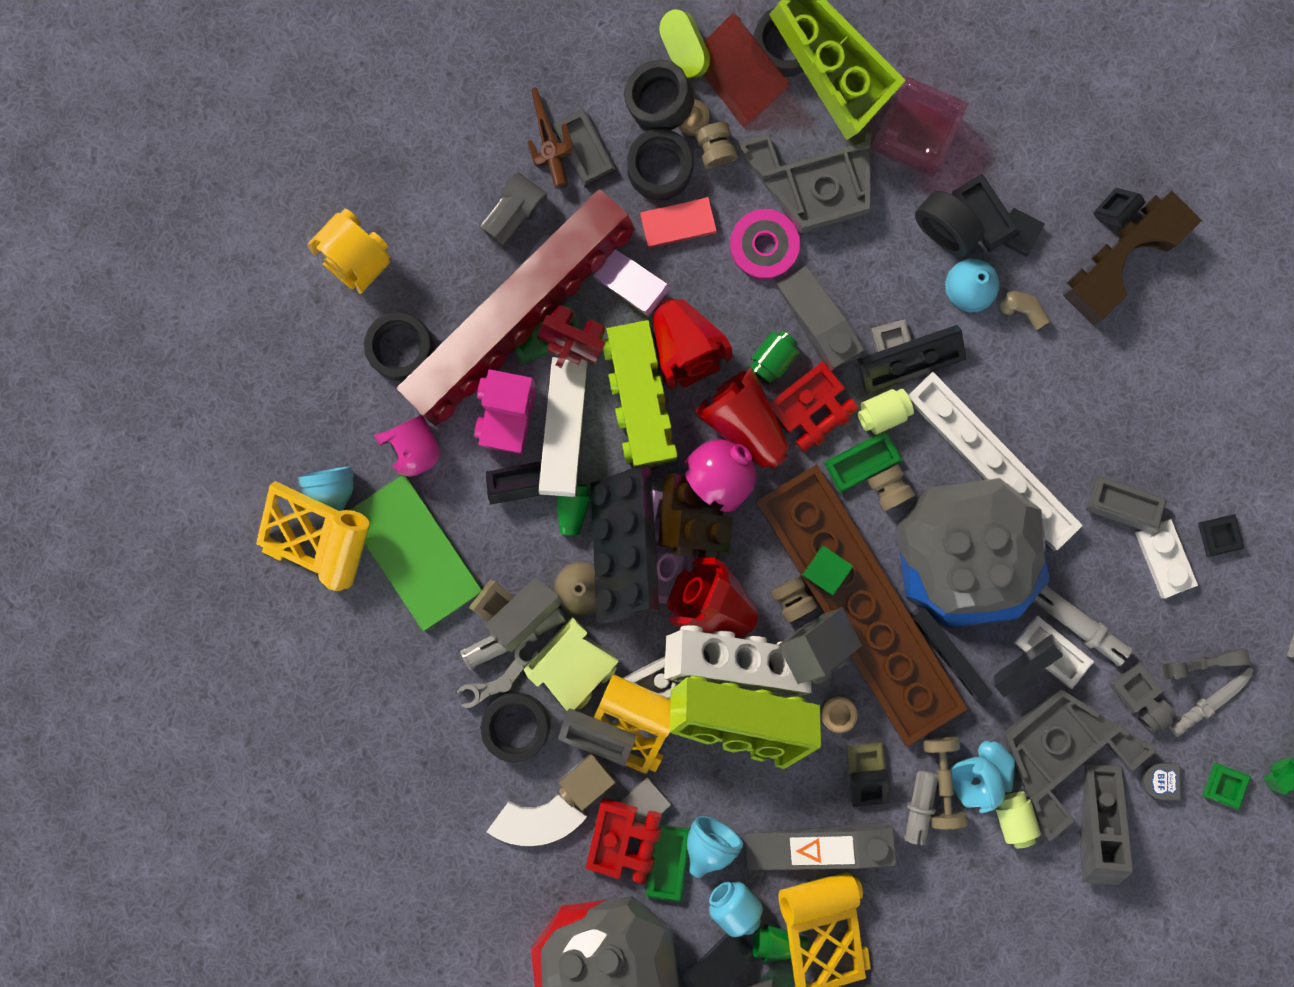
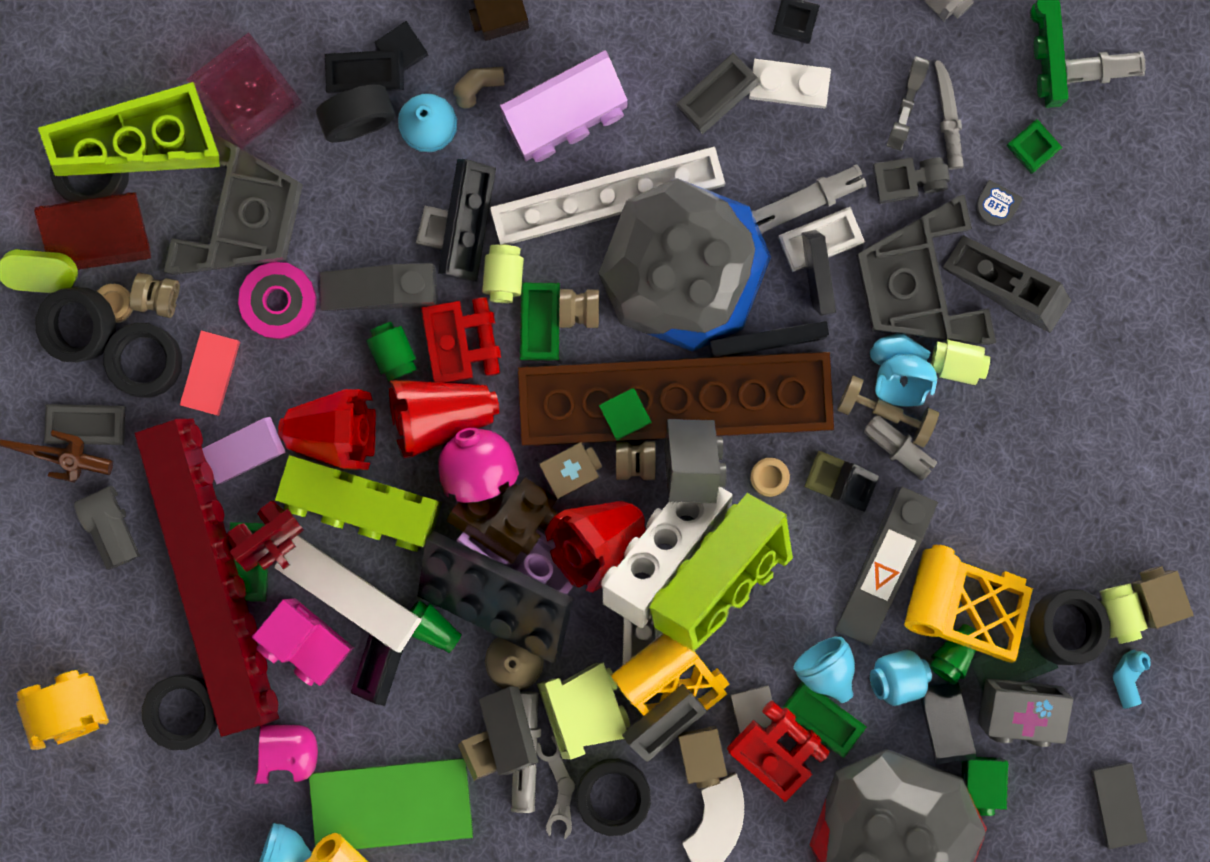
camera: 60 degrees left, 0 degrees up
(758, 551) = (571, 469): none -> dark tan brick
(1048, 387) = (565, 107): none -> lavender slope

